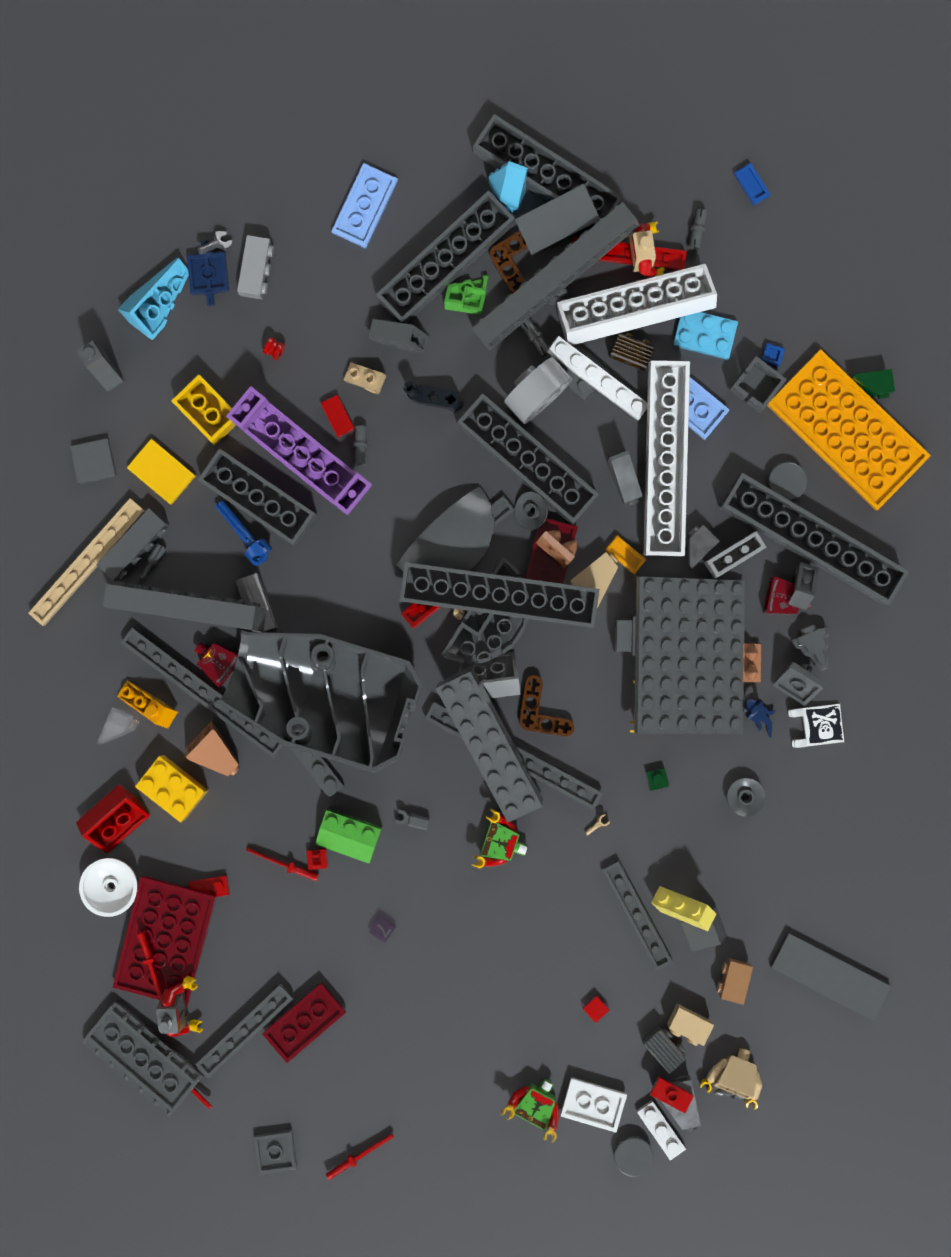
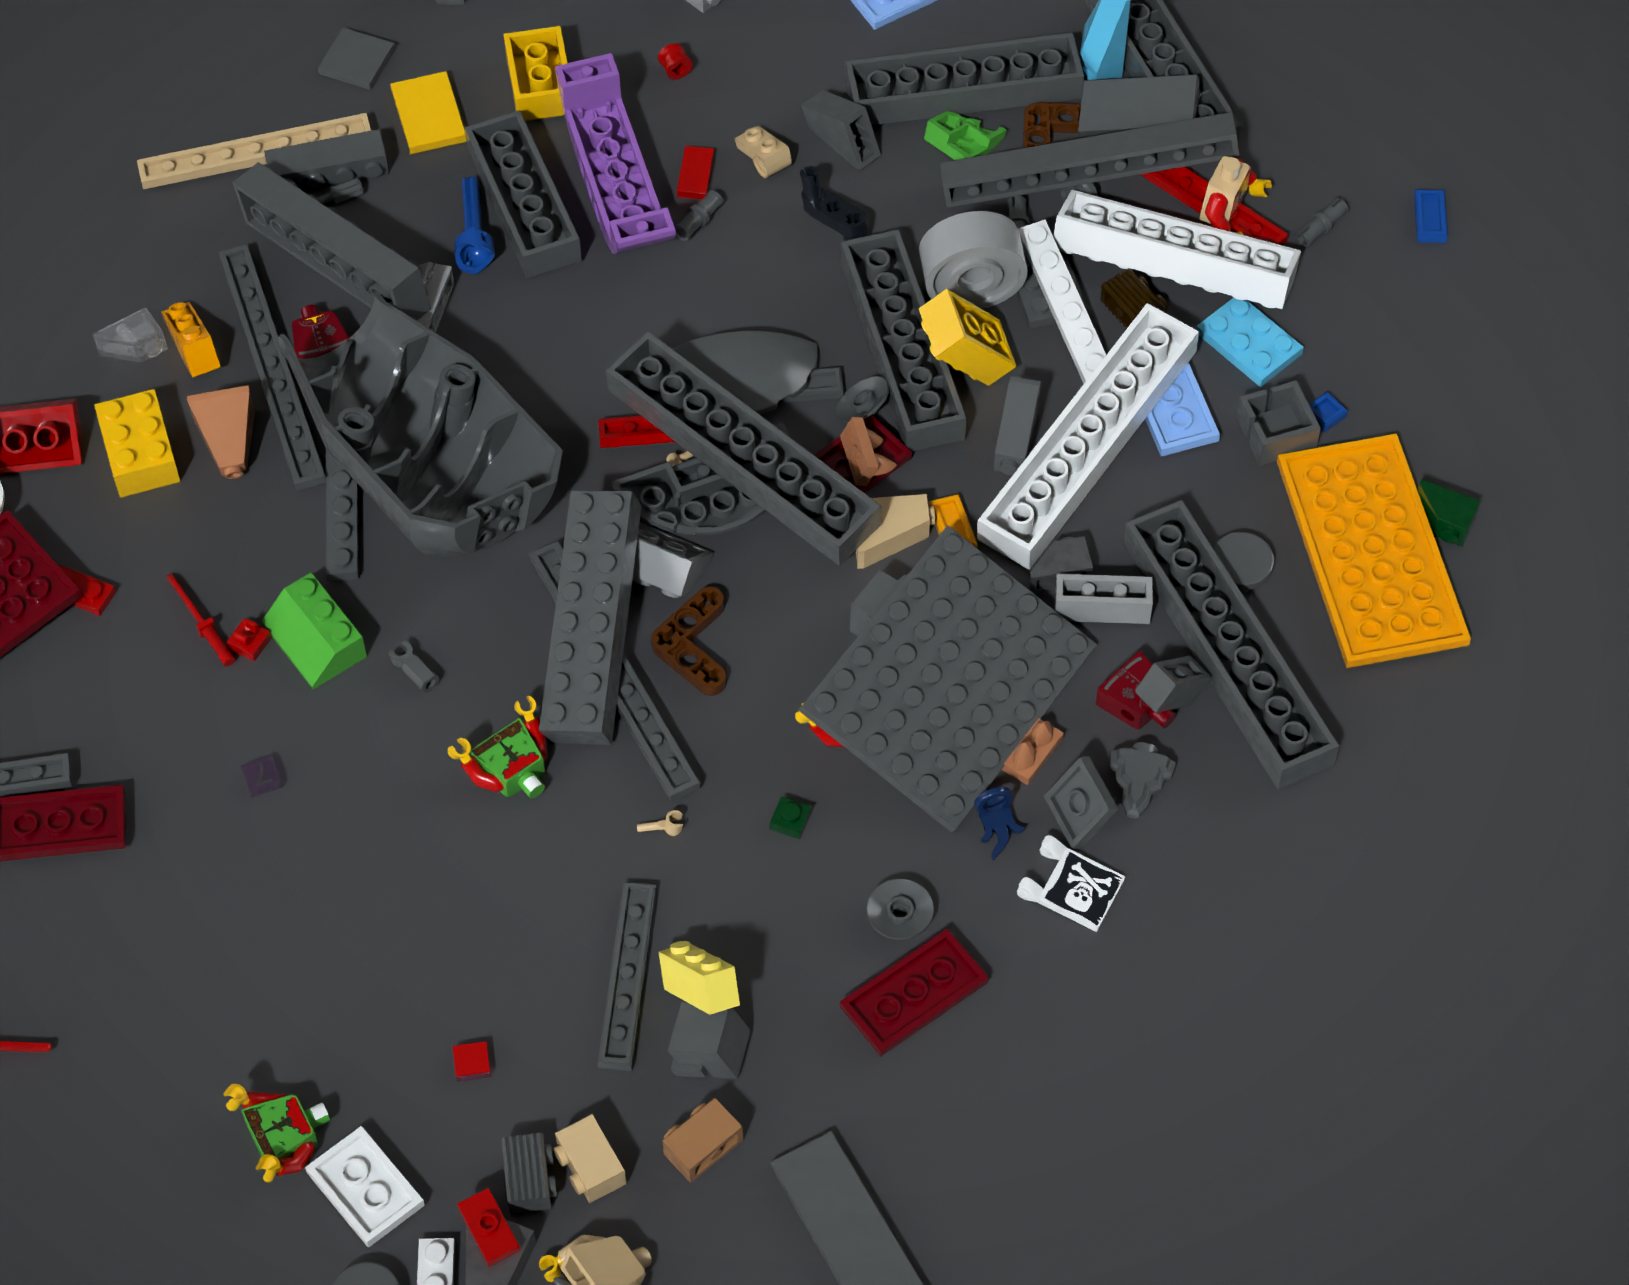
camera: 30 degrees right, 30 degrees down
(567, 443) = (966, 337): none -> yellow brick
(780, 836) = (913, 992): none -> dark red plate

